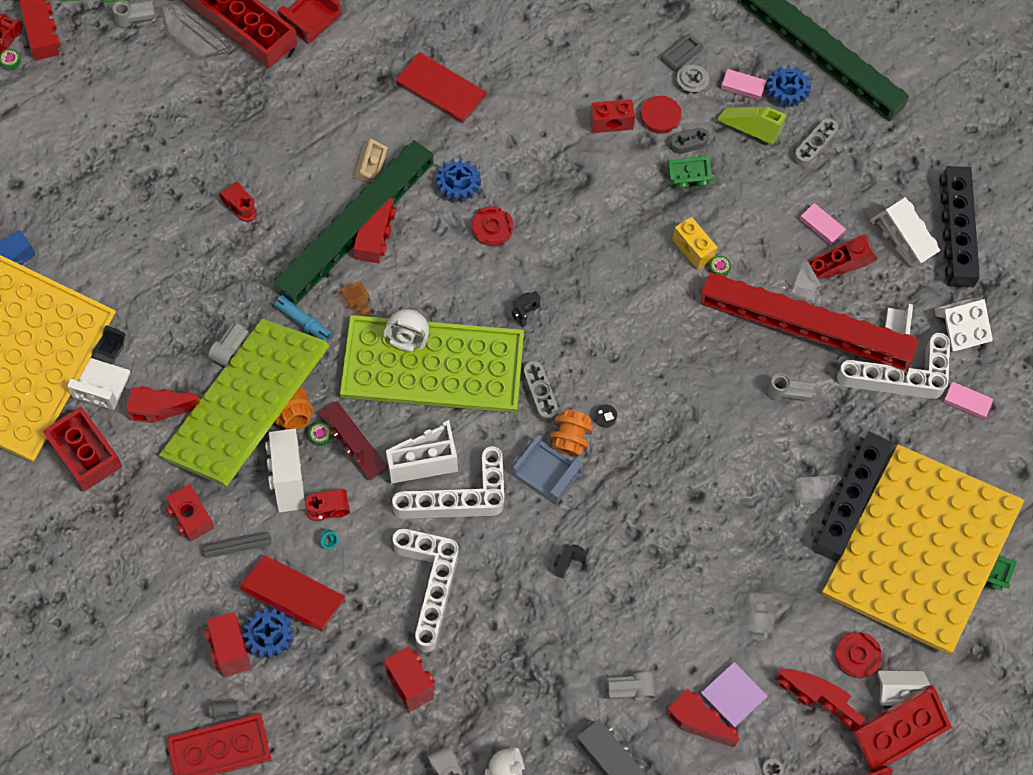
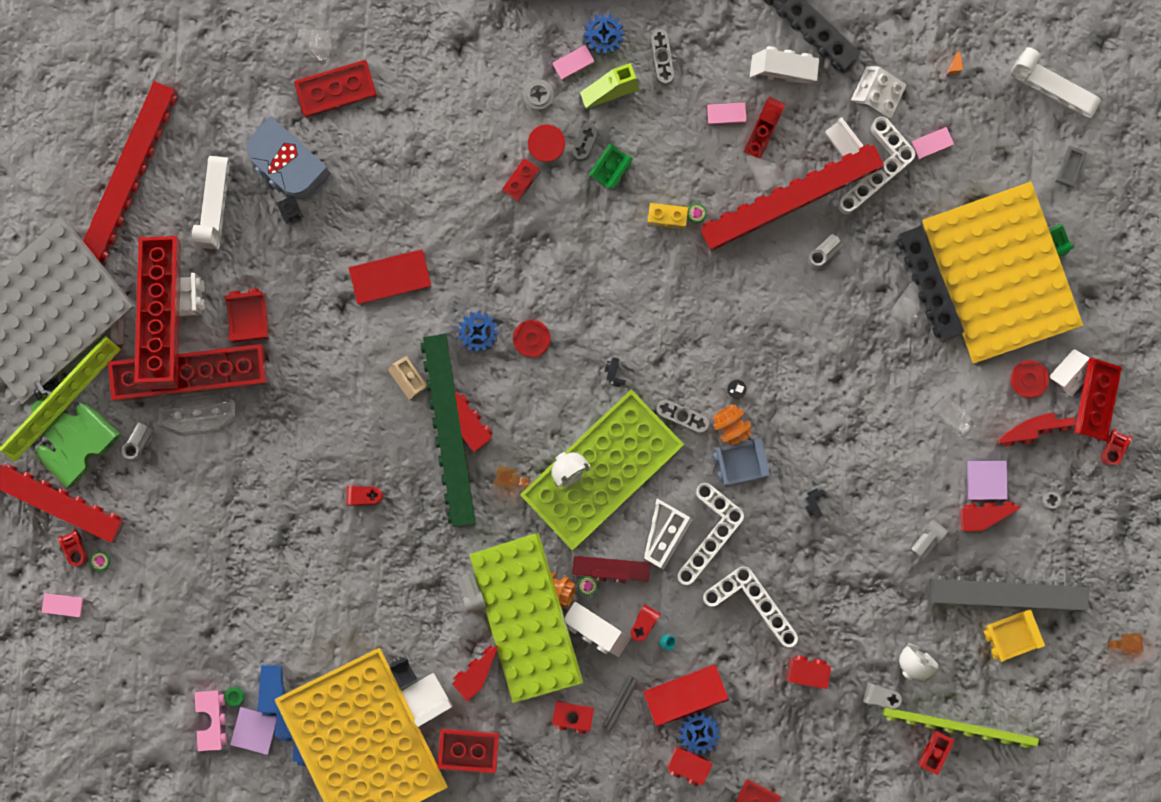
camera: 40 degrees left, 20 degrees up
(310, 325) = (494, 527): dark azure pin -> none
(682, 52) = (509, 81): dark grey tile -> none

